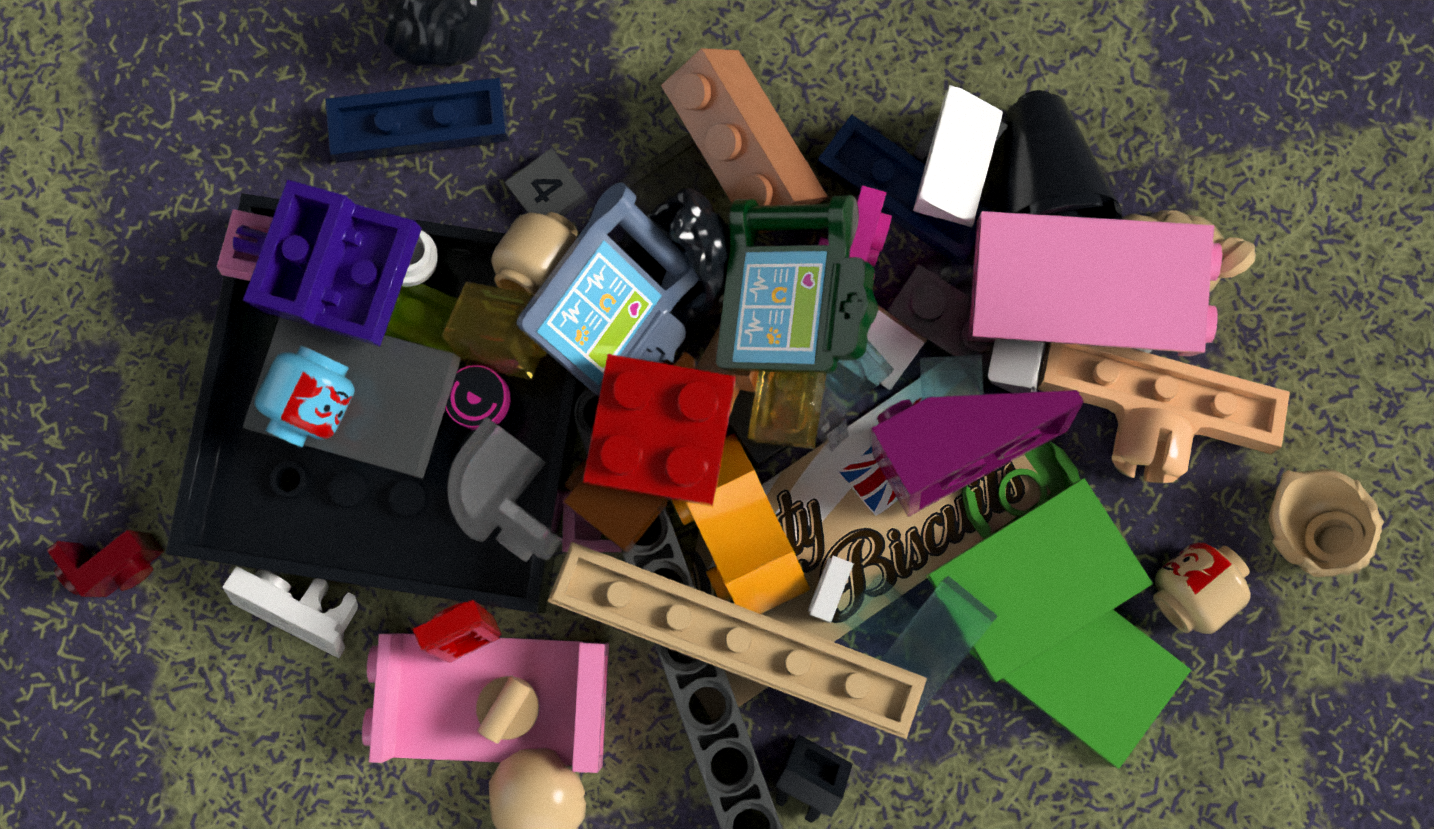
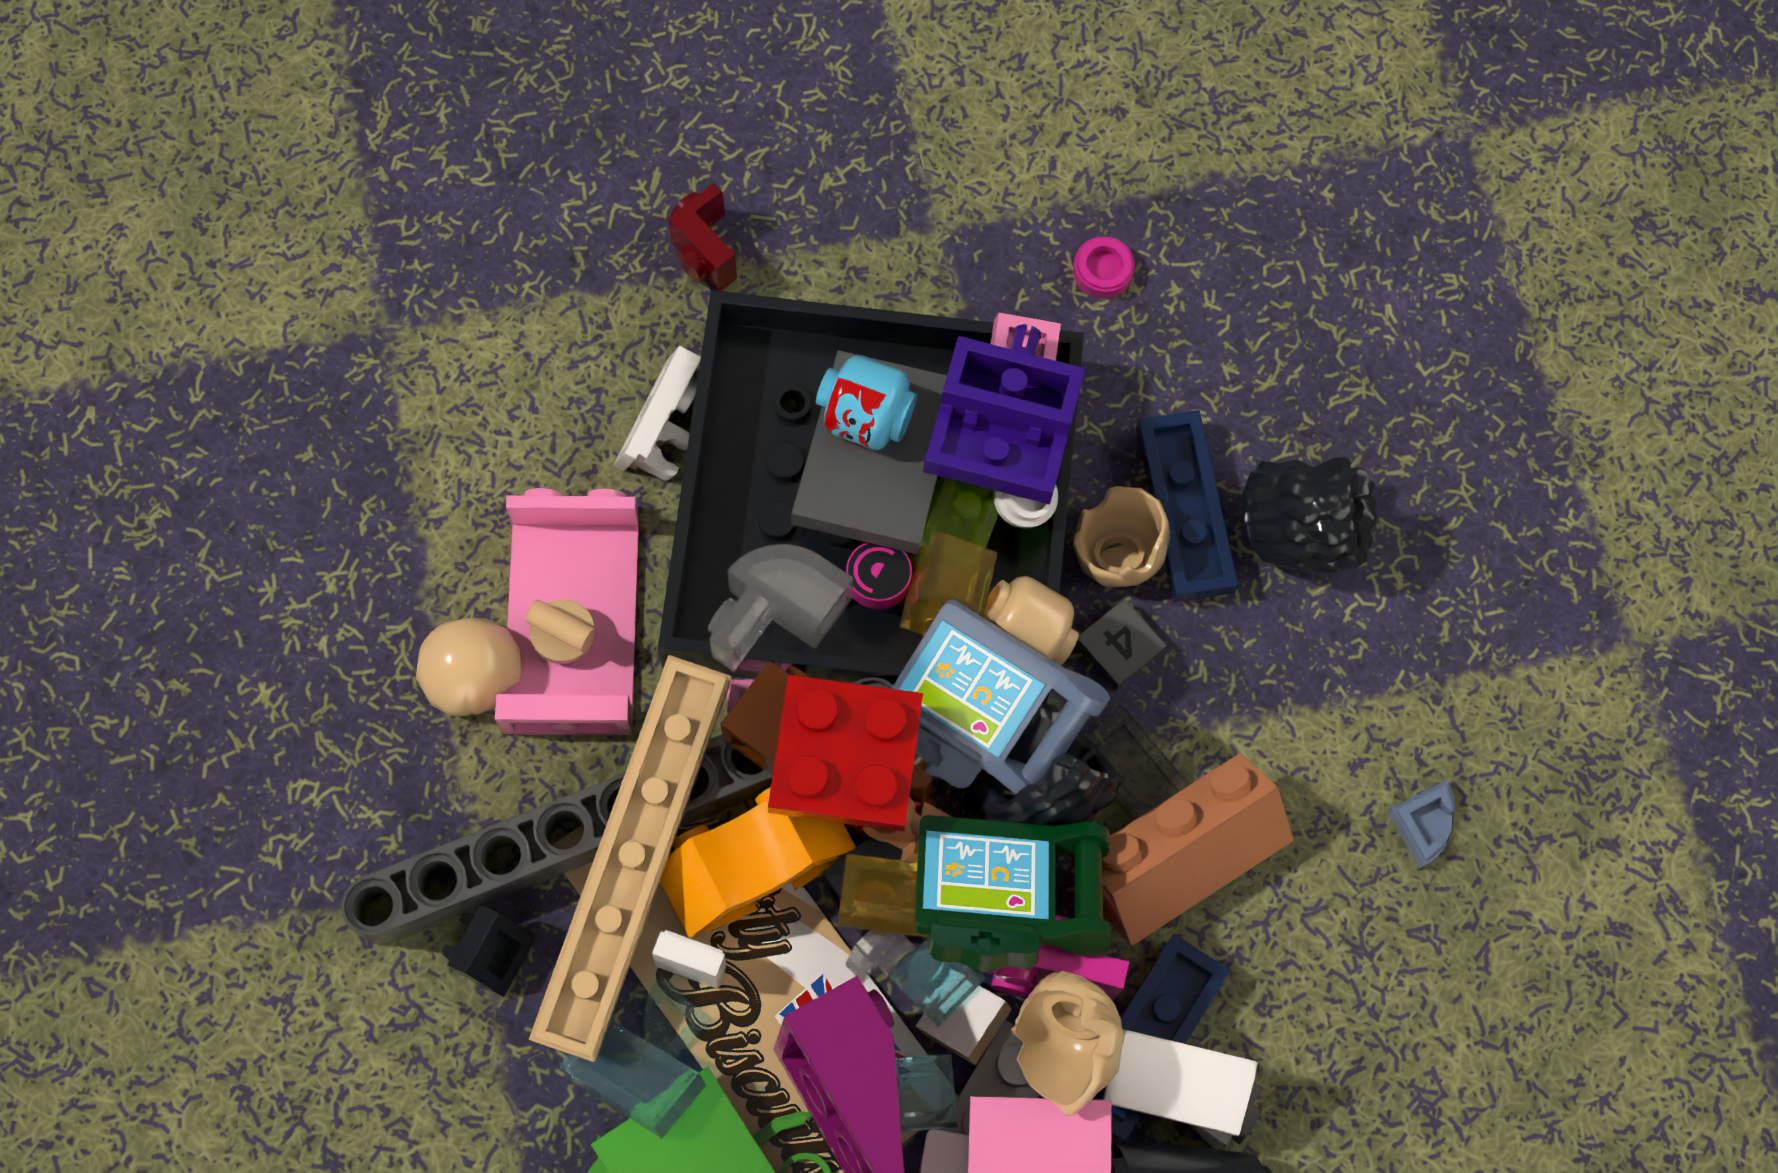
camera: 80 degrees right, 10 degrees down
(169, 179) = (1103, 267): none -> dark pink tile
(443, 159) = (1126, 518): none -> tan hair
(457, 631) = (637, 572): red plate -> none
(934, 241) = (1069, 1040): none -> tan hair

